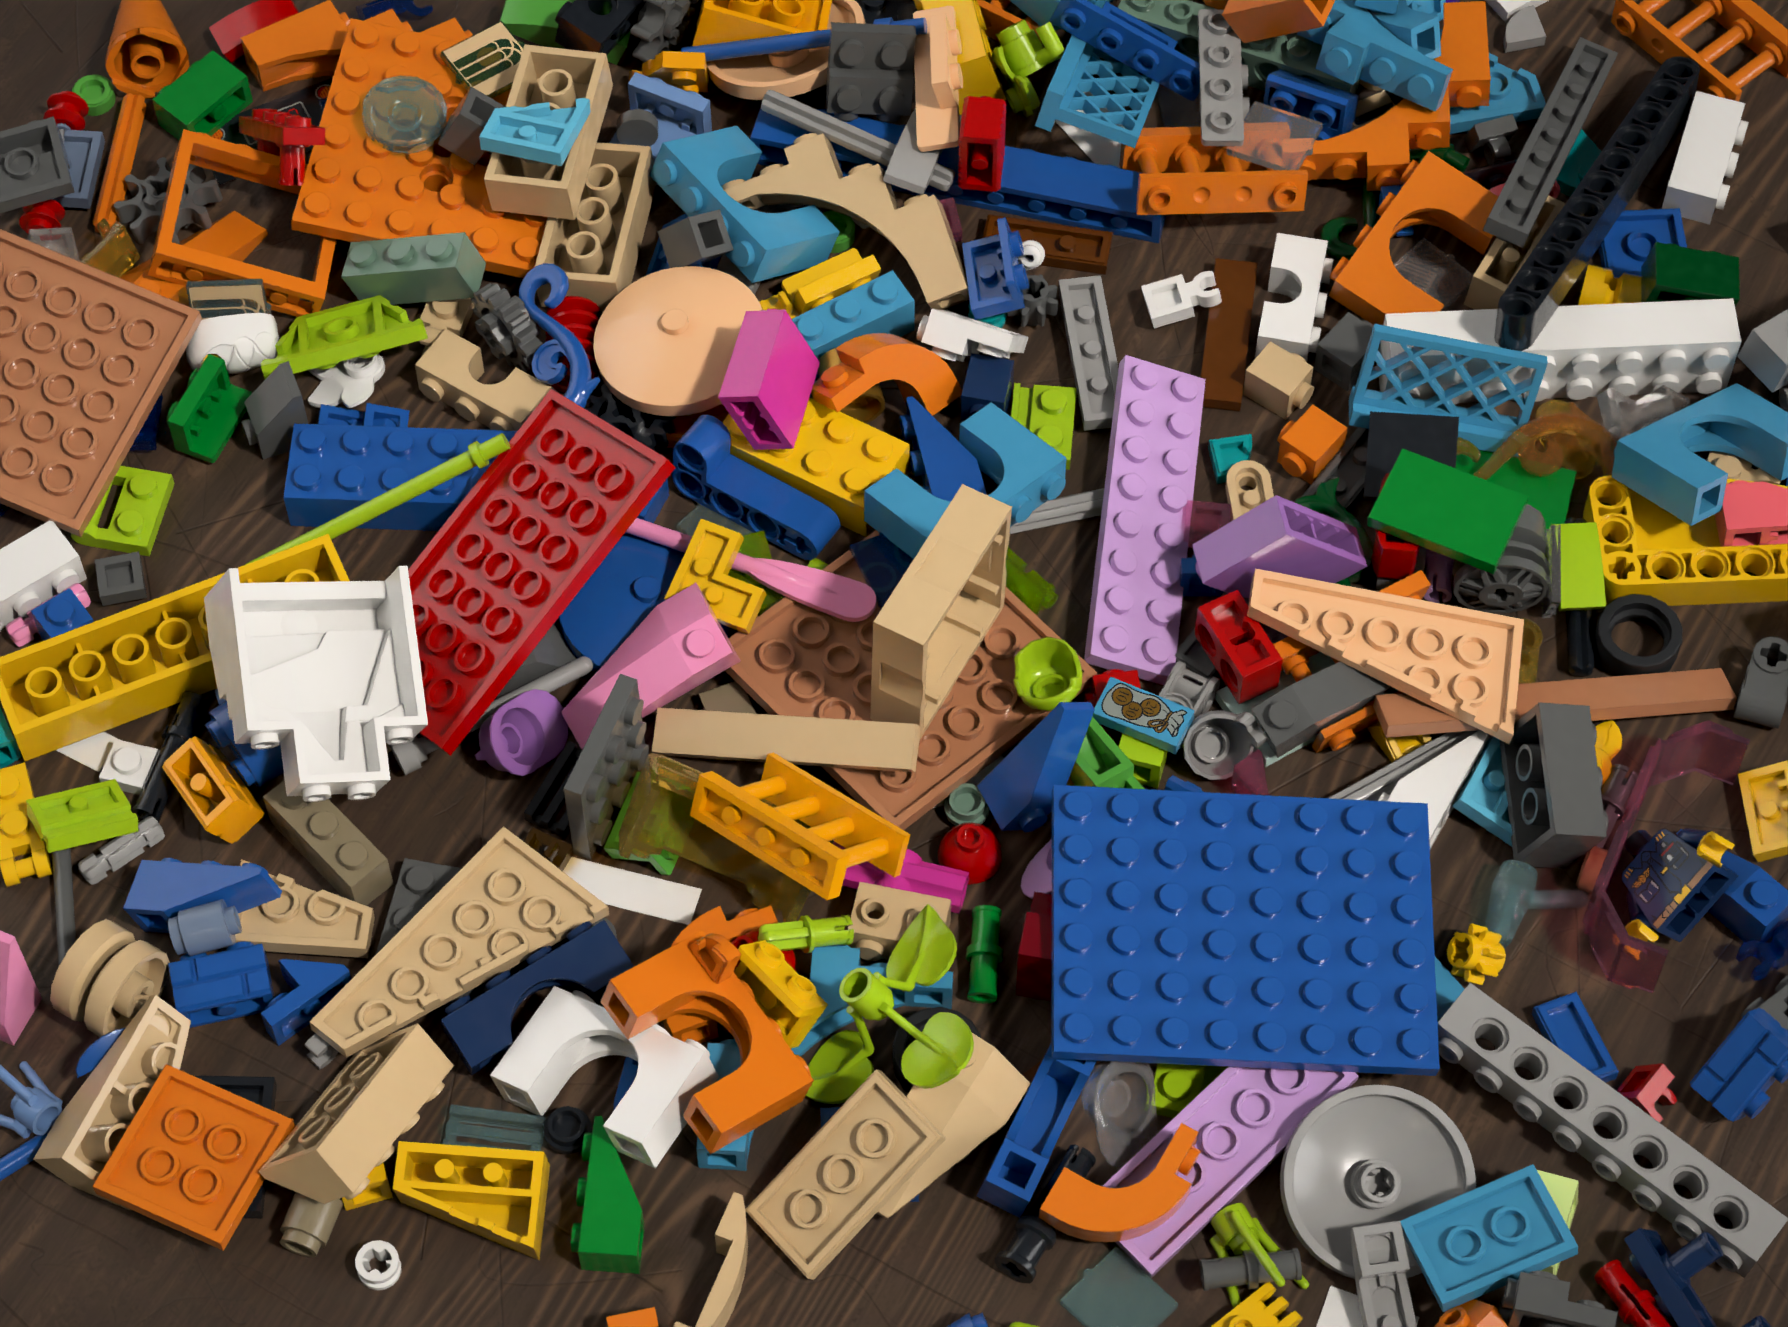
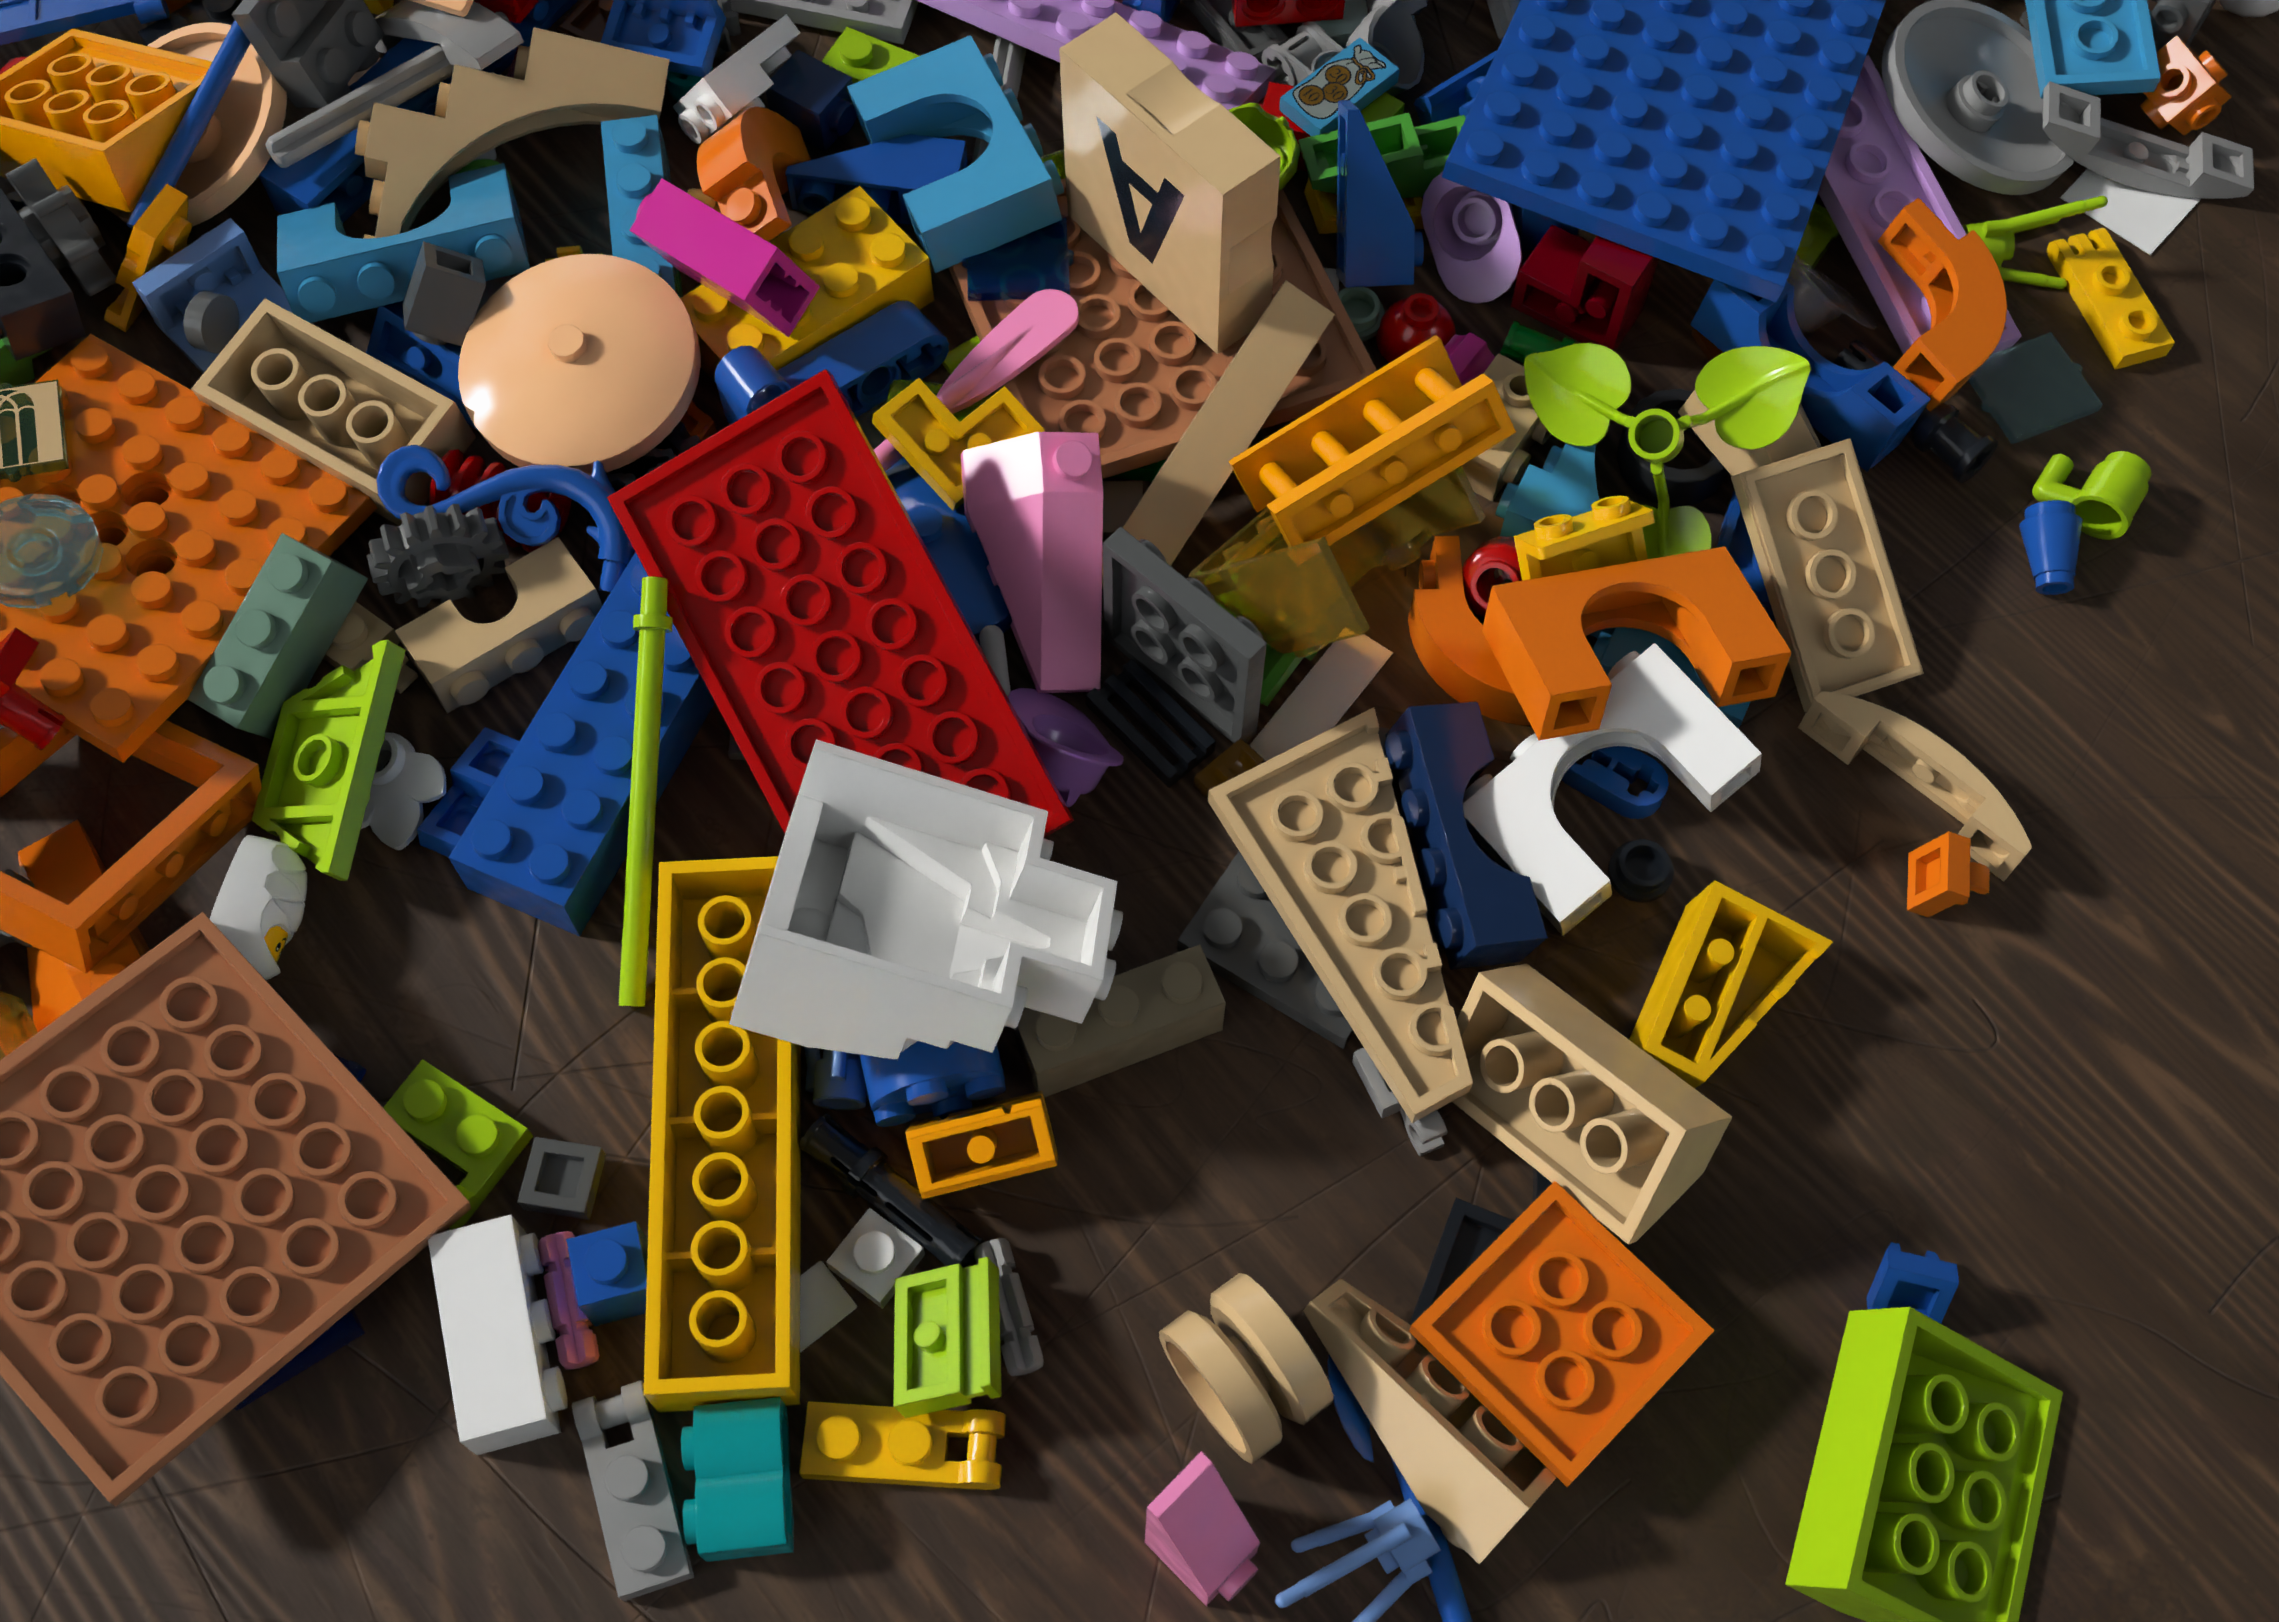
camera: 70 degrees left, 5 degrees up
(64, 901) = (1074, 1416): dark grey bar -> none
(172, 886) = (1140, 1226): blue slope -> none
(204, 928) = (1212, 1212): sand blue brick -> none
(207, 411) = (355, 972): green bracket -> none
(222, 984) = (1286, 1223): blue brick -> none
(227, 297) = (187, 880): piece -> none
(273, 412) = (409, 879): dark grey slope -> none
(308, 922) = (1213, 1106): tan wing -> none
(308, 1225) = (1692, 1226): dark tan brick -> none
(312, 988) = (1341, 1111): blue slope -> none
(382, 1251) = (1768, 1133): white bush -> none
(466, 125) = (116, 466): dark grey brick -> none
(494, 1118) = (1640, 916): clear light blue tile -> none
(535, 131) = (195, 374): medium azure wing -> none
(555, 78) = (181, 384): tan brick -> none
(611, 1217) = (1778, 851): green slope -> none
(716, 956) = (1550, 571): orange tile -> none
(808, 933) = (1502, 501): lime axle -> none
(829, 279) = (566, 199): yellow bracket -> none
(1247, 1269) = (2041, 250): dark grey pin -> none
(1250, 776) = (1448, 42): clear pink slope -> none

